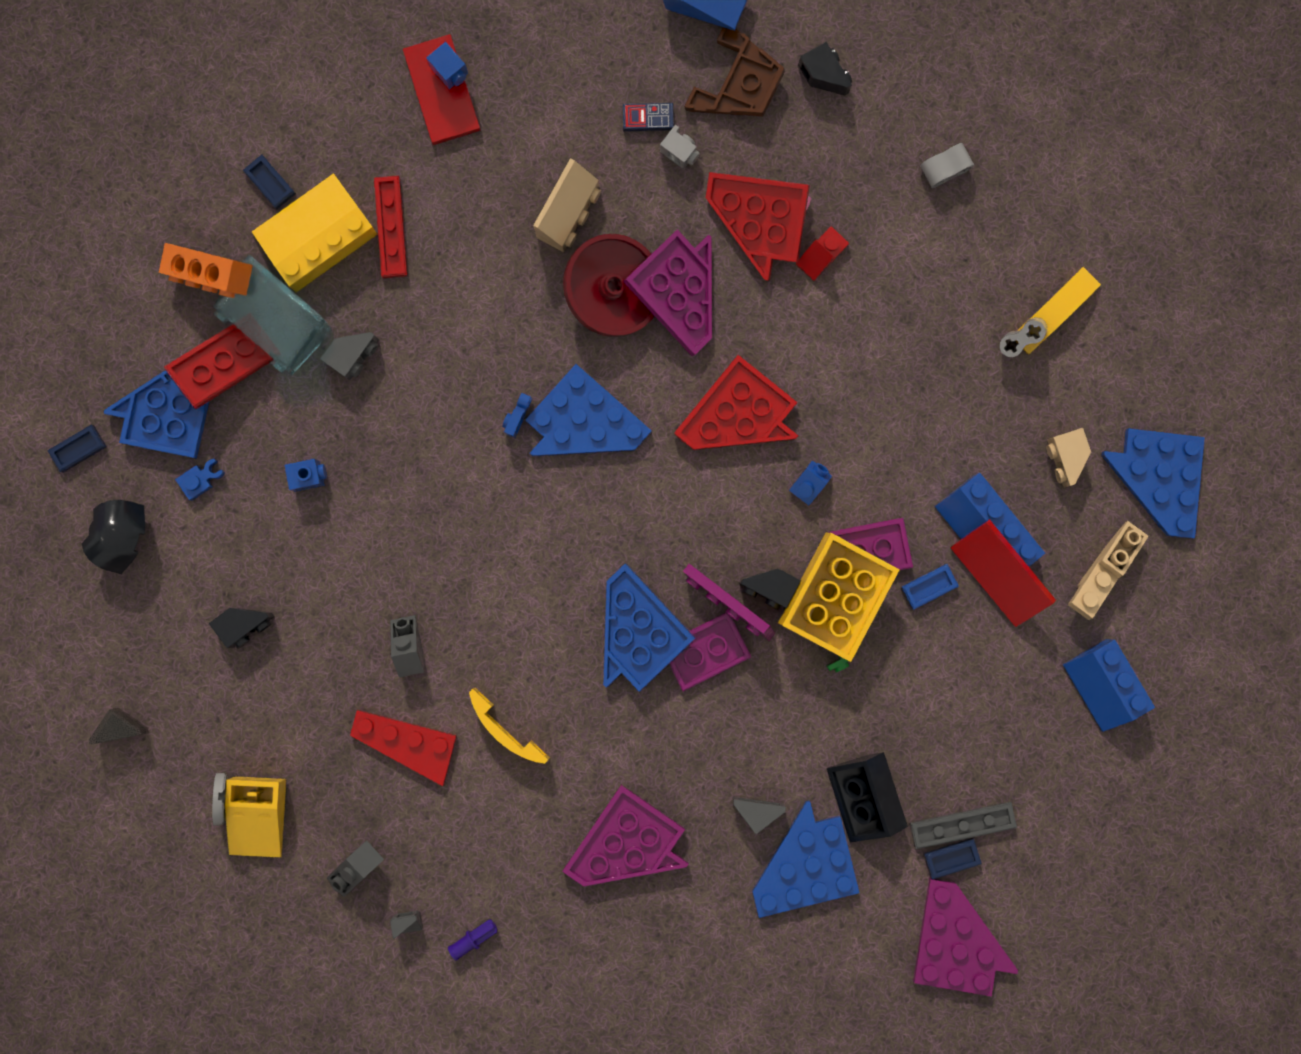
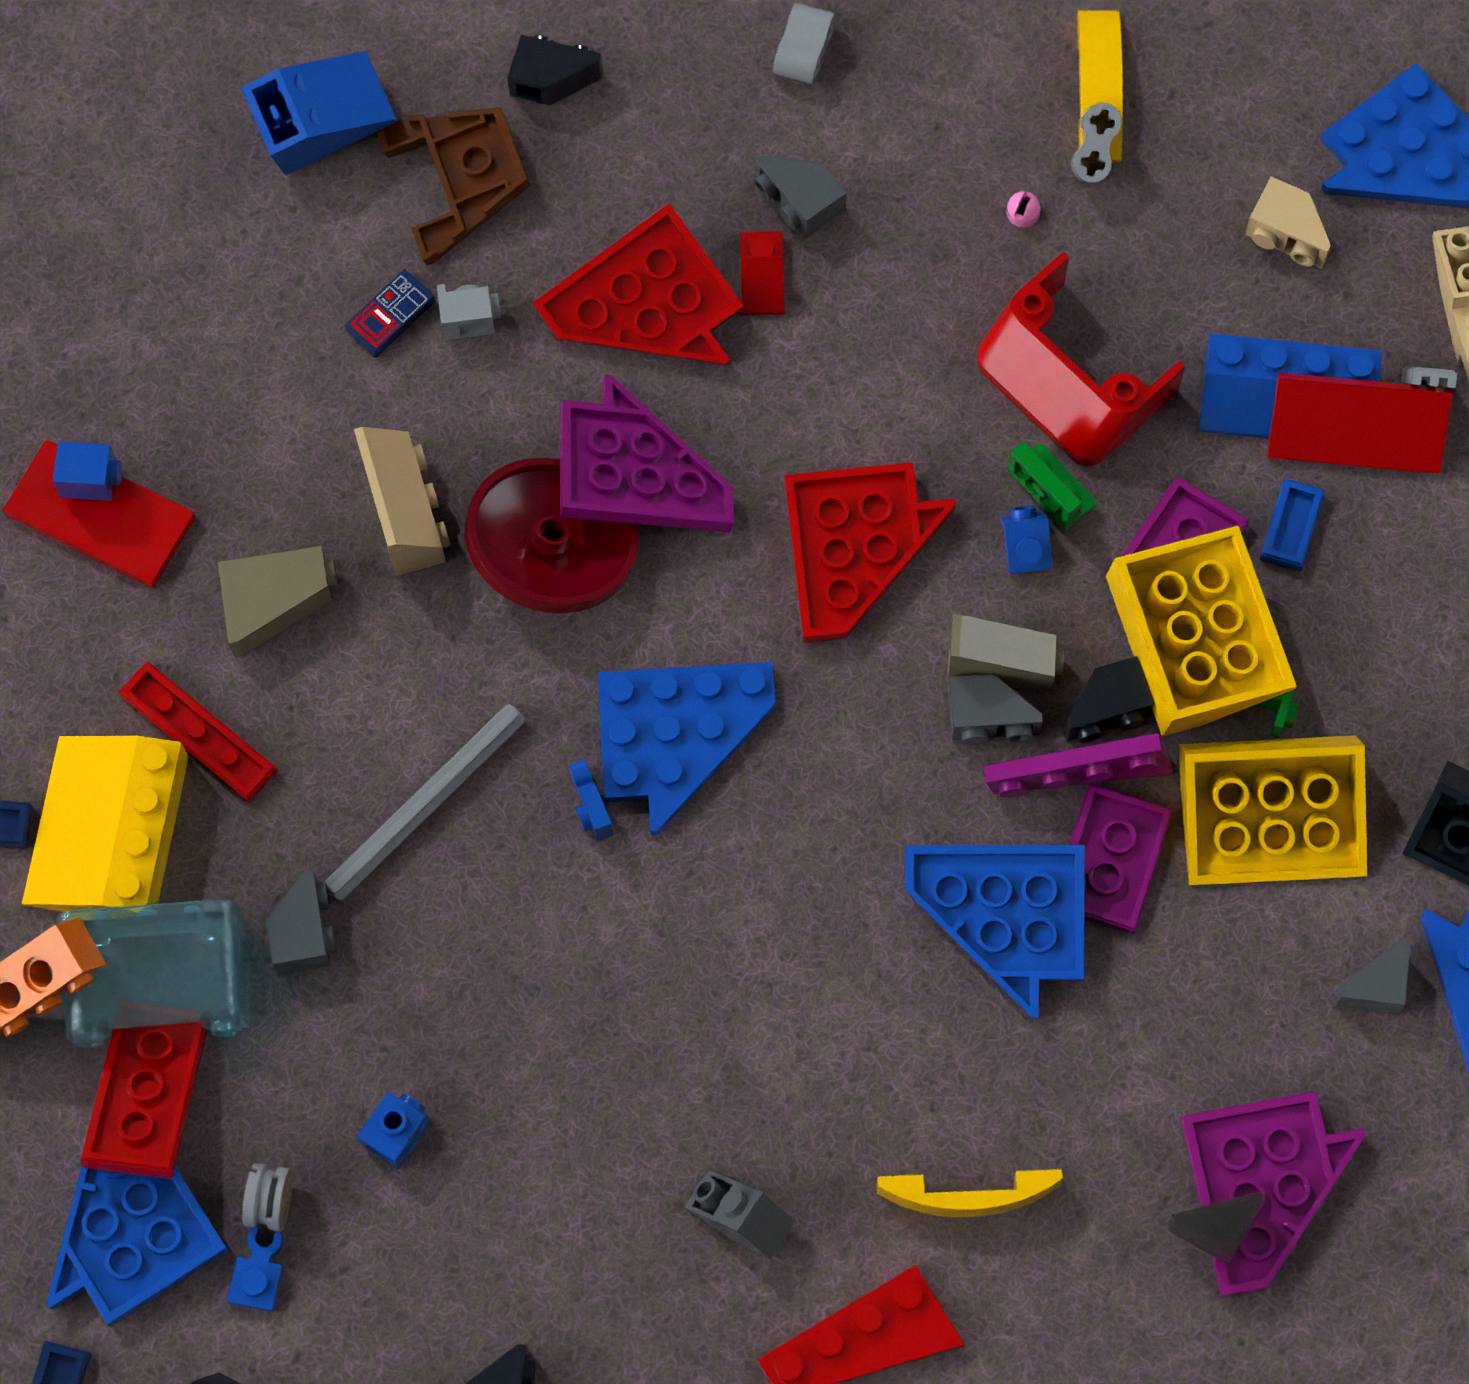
camera: 45 degrees left, 15 degrees down
(228, 453) = (267, 1197): none -> light grey wheel
(452, 349) = (424, 802): none -> light grey axle
(475, 196) = (272, 593): none -> dark tan slope
(587, 847) = (1217, 1226): none -> clear smoke slope
(718, 539) = (988, 709): none -> dark grey slope
(747, 524) = (1010, 652): none -> dark tan slope
(792, 698) = (1274, 809): none -> yellow slope
(846, 469) = (1050, 484): none -> green bracket
(876, 233) = (802, 190): none -> dark grey slope
(888, 427) = (1053, 390): none -> red windscreen
(965, 339) = (1031, 212): none -> bright pink hinge
(1051, 578) = (1429, 376): none -> light grey tile

